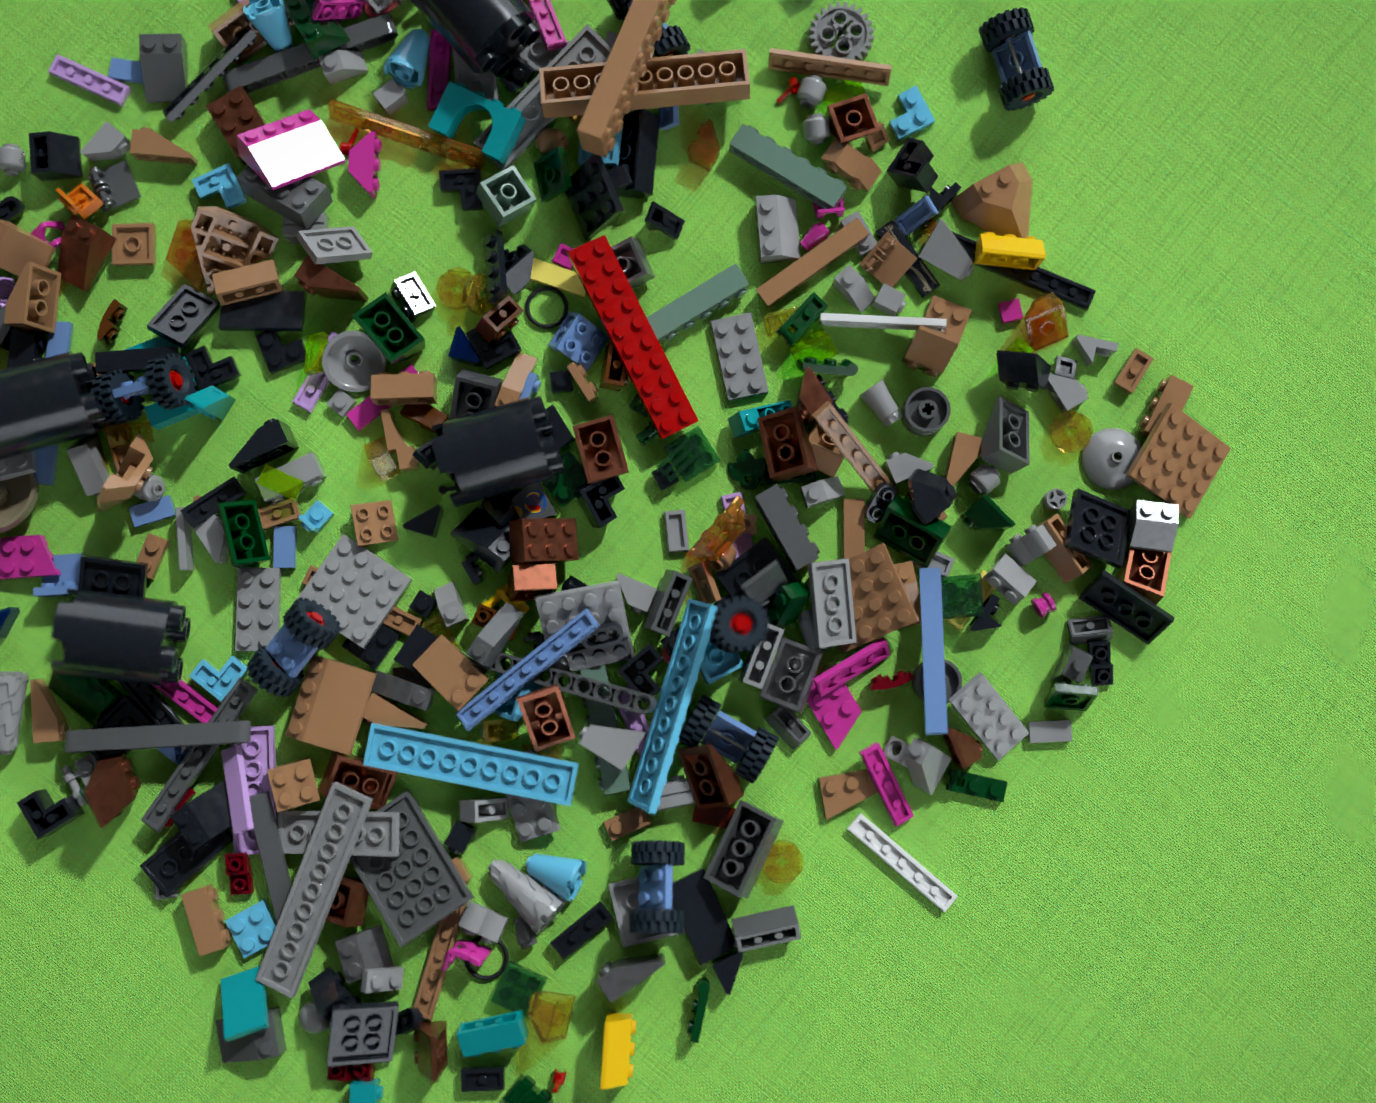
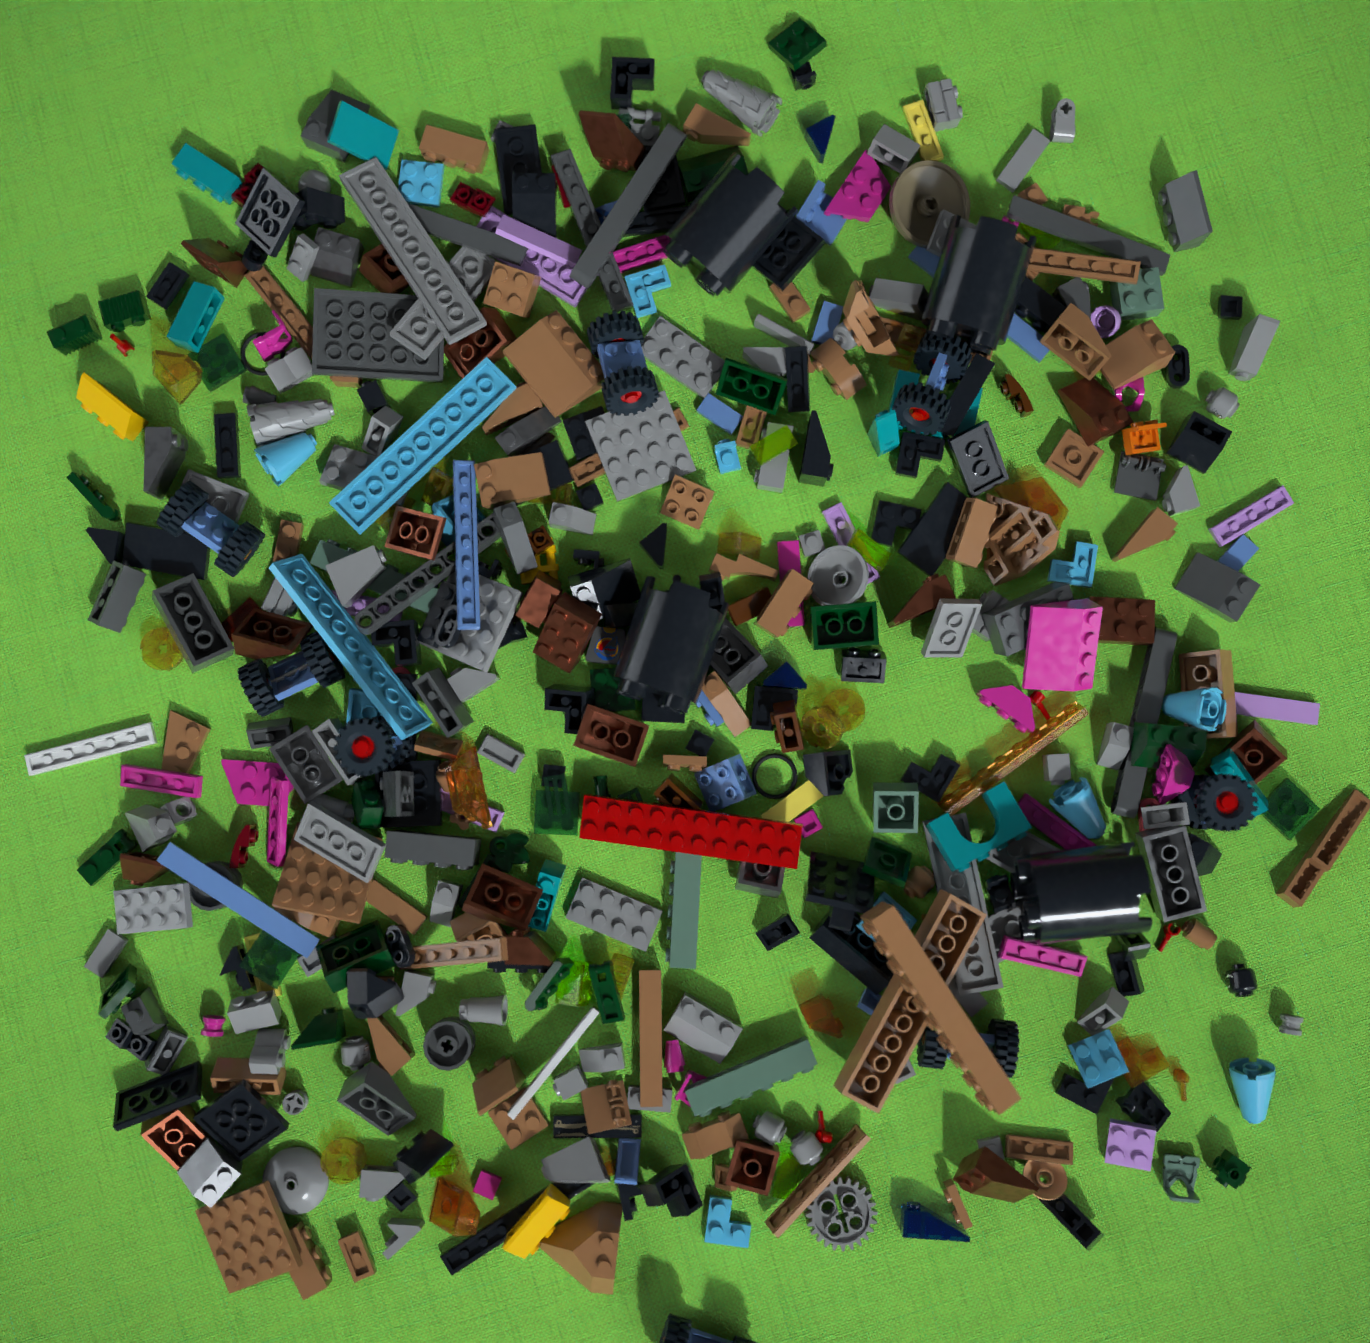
camera: 125 degrees right, 0 degrees up
(186, 470) = (845, 378): none -> medium nougat brick
(215, 68) = (1184, 624): black plate -> none
(495, 266) = (836, 754): black plate -> none

